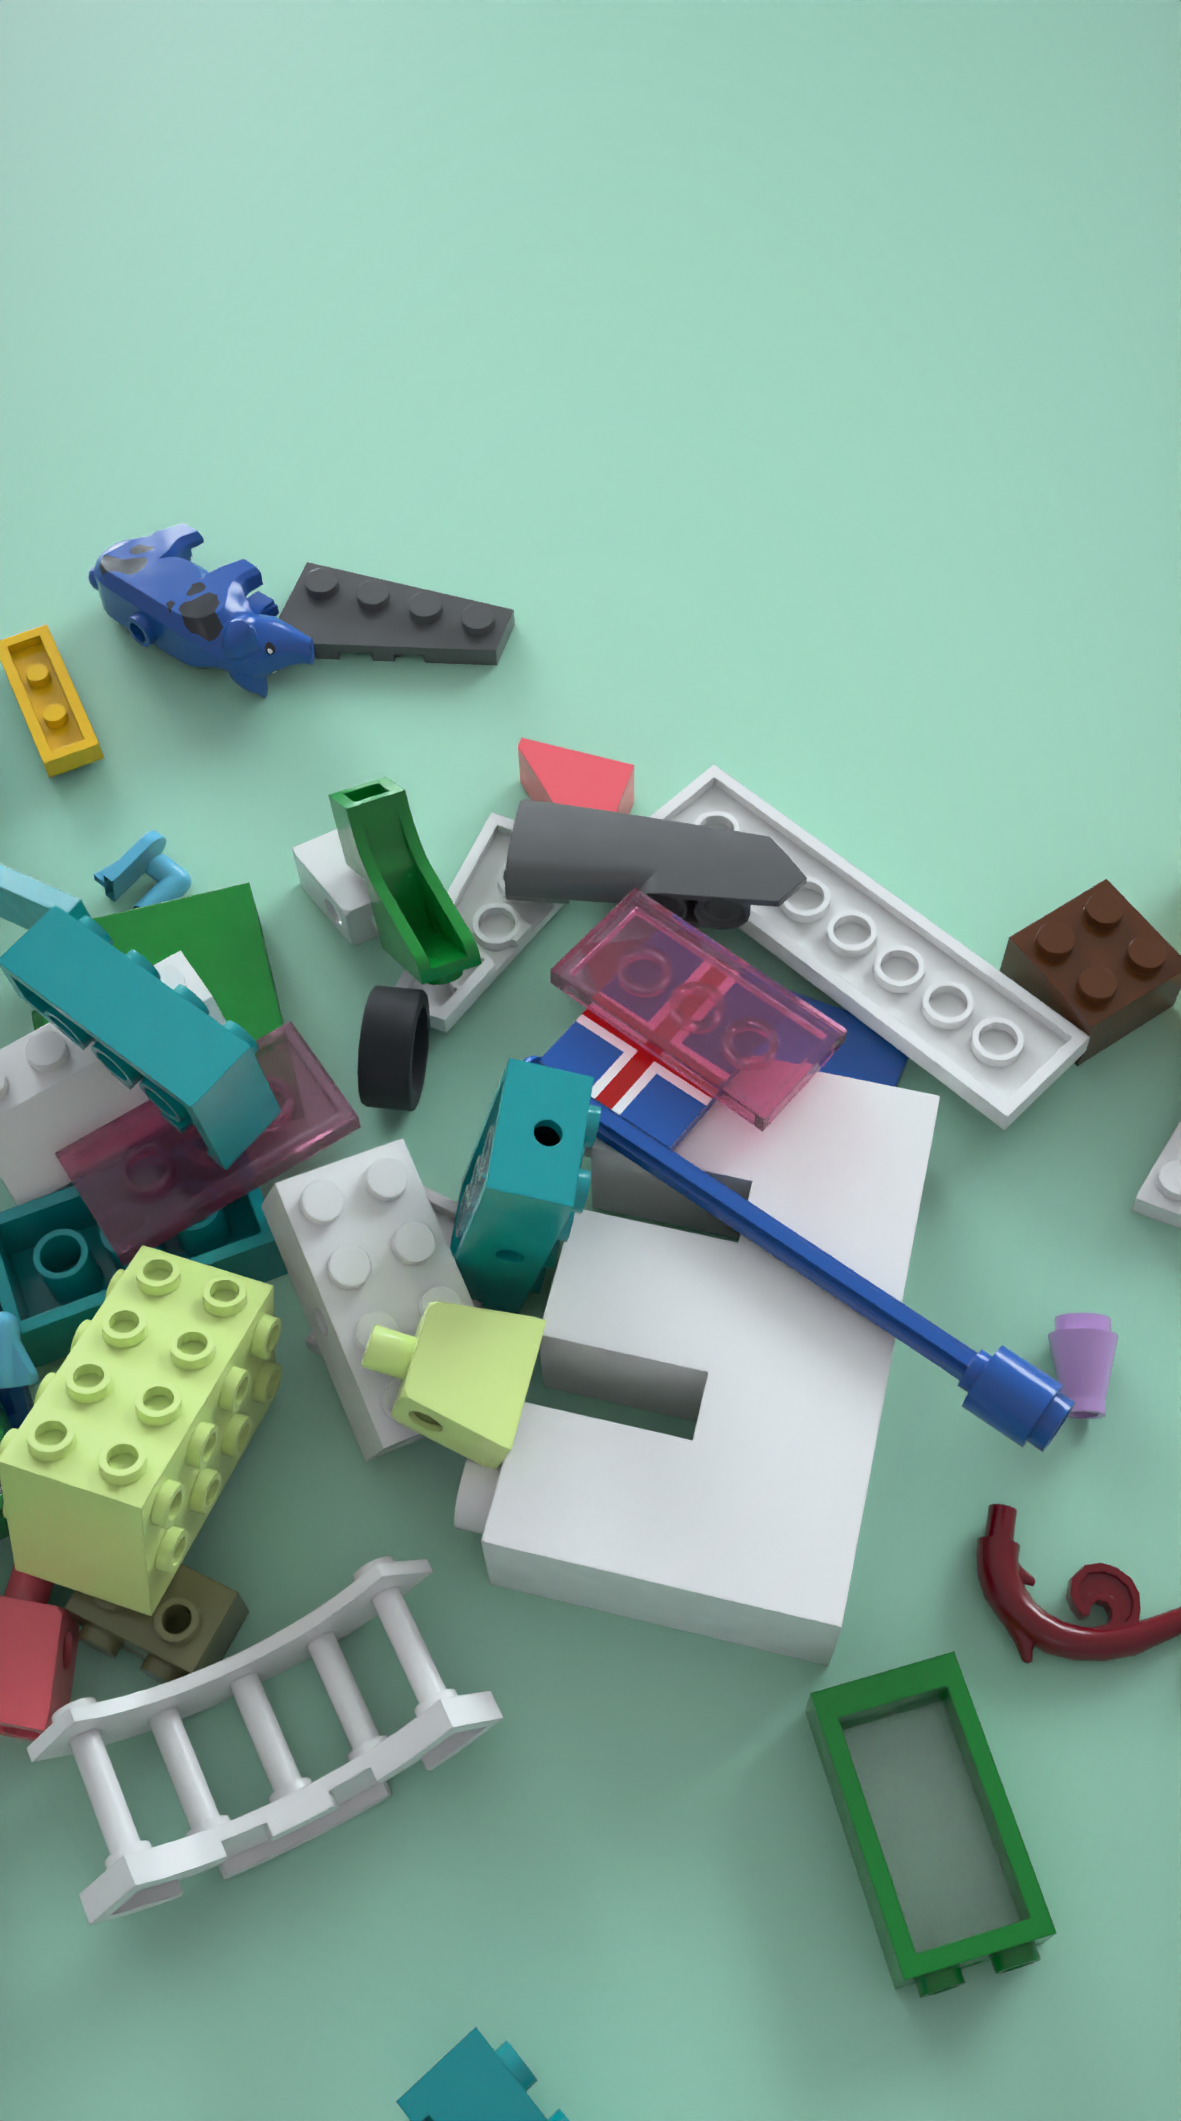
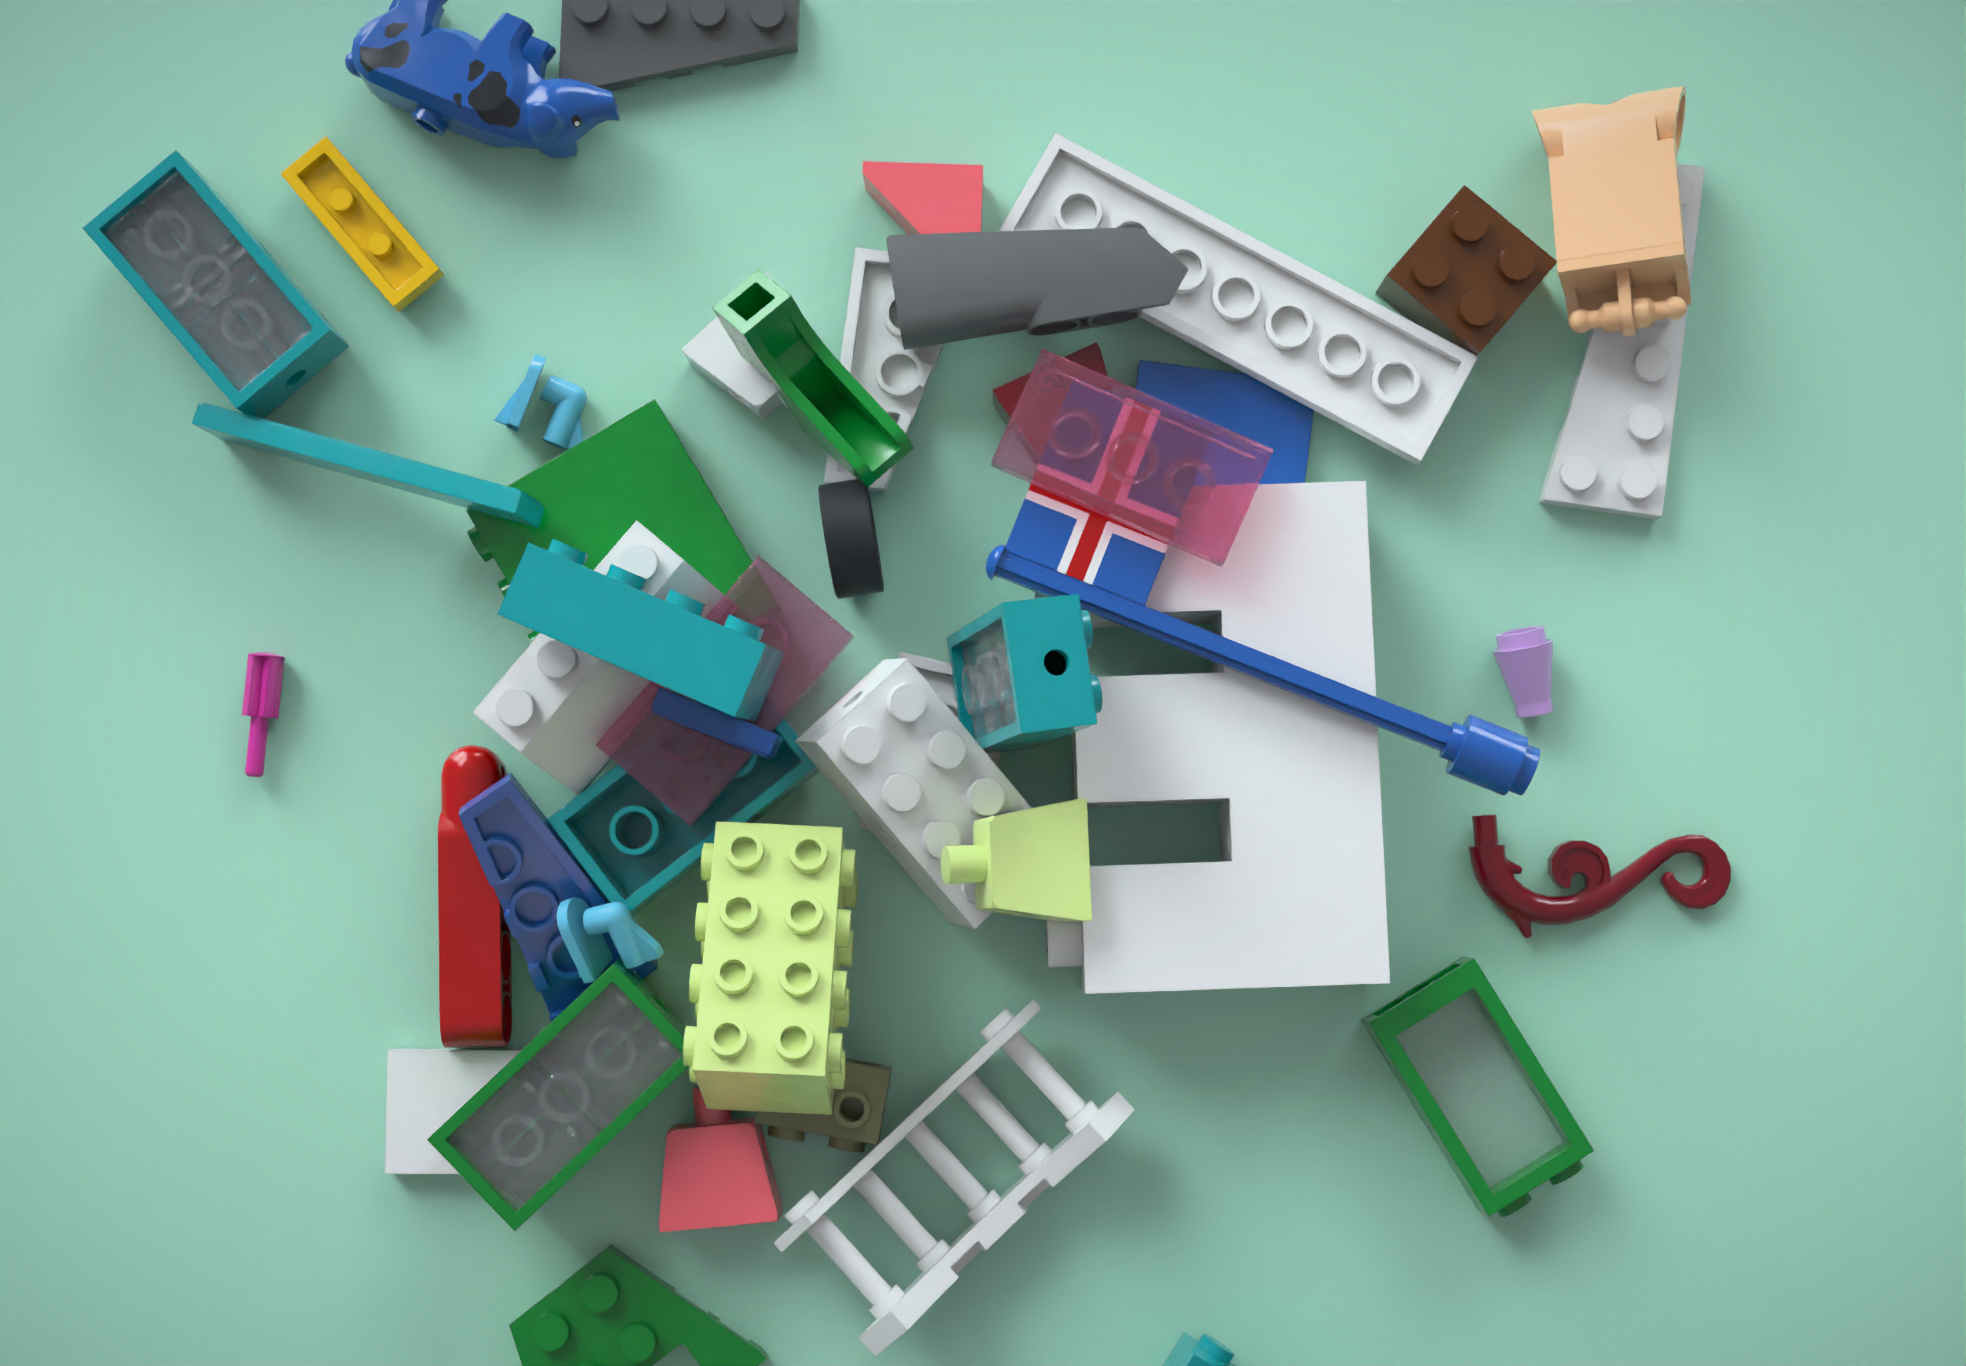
camera: 15 degrees left, 25 degrees up
(182, 1150) = (716, 724): none -> blue tile

